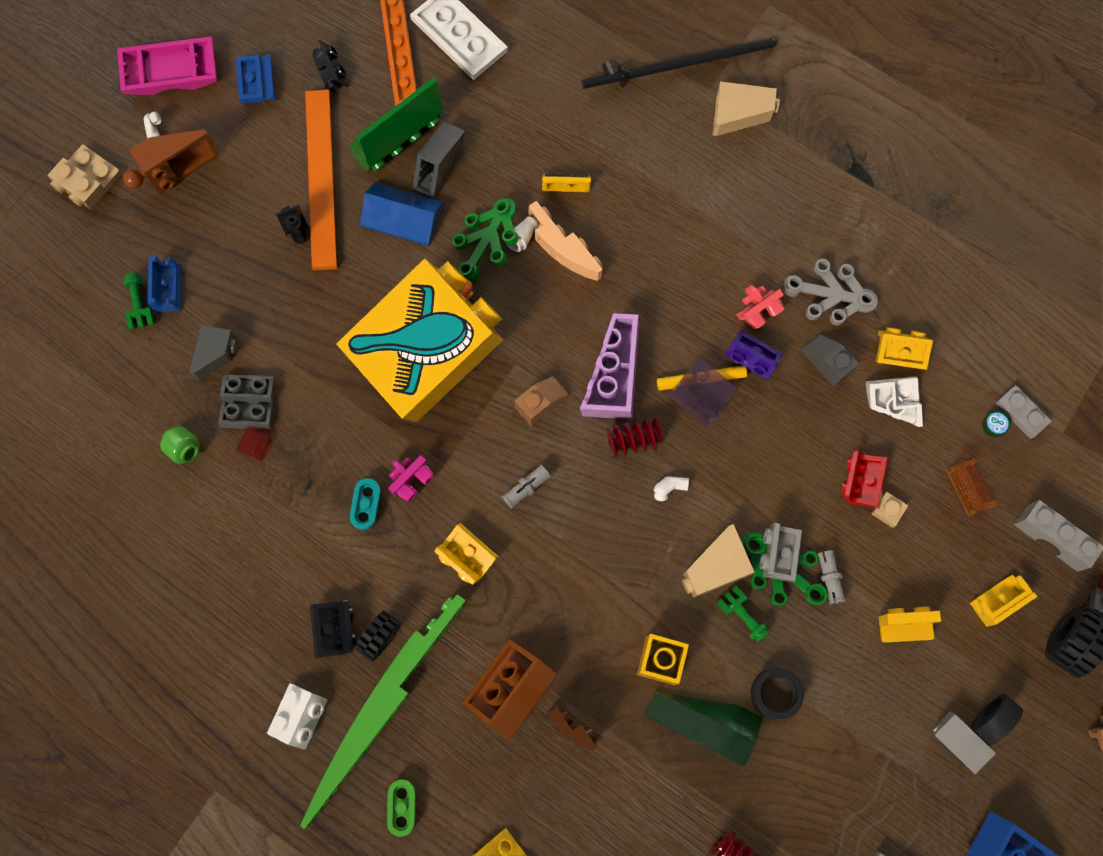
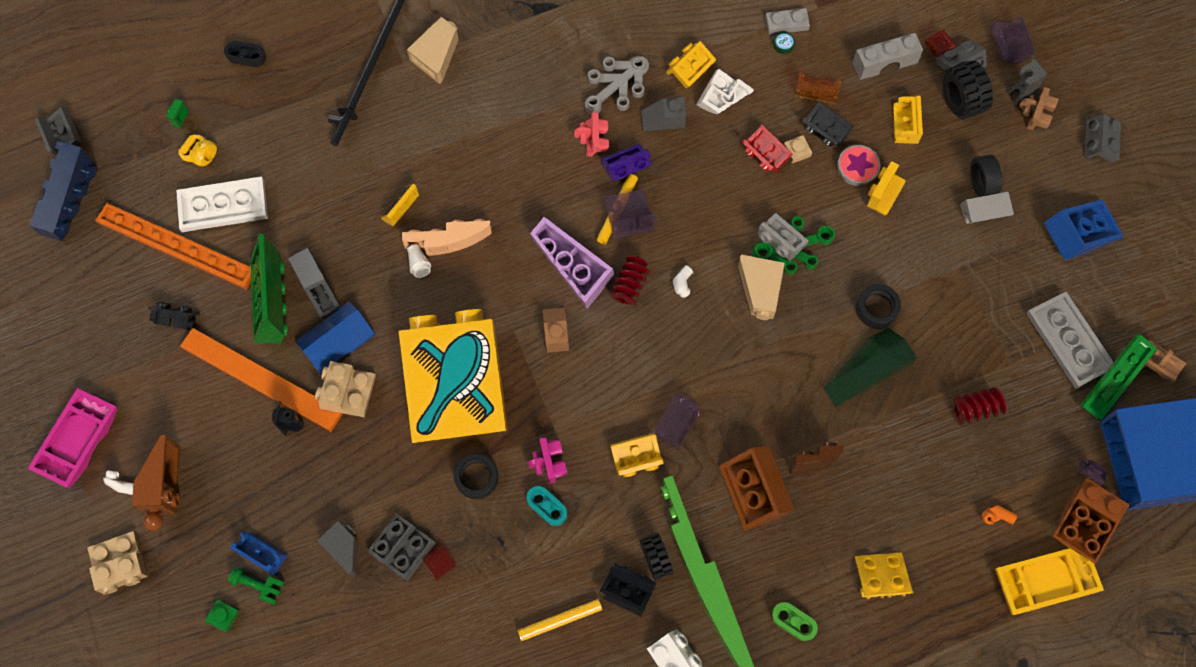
camera: 50 degrees left, 5 degrees down
(93, 293) = (222, 616): none -> green plate
(180, 445) = (401, 619): bright green head -> none
(255, 79) = (139, 377): blue plate -> none
(268, 585) = (559, 620): none -> yellow piece
(342, 406) = (463, 463): none -> black tyre
(357, 254) = (345, 389): none -> tan plate
(487, 236) = (401, 283): green plant -> none
(515, 495) = (615, 395): light grey pin -> none
(525, 571) = (677, 420): none -> hinge
(662, 659) = (805, 365): yellow head -> none
(758, 631) = (826, 290): green hinge -> none
(831, 577) = (820, 217): light grey pin -> none
(916, 581) = (858, 165): none -> tile
(936, 522) = (828, 124): none -> black bracket

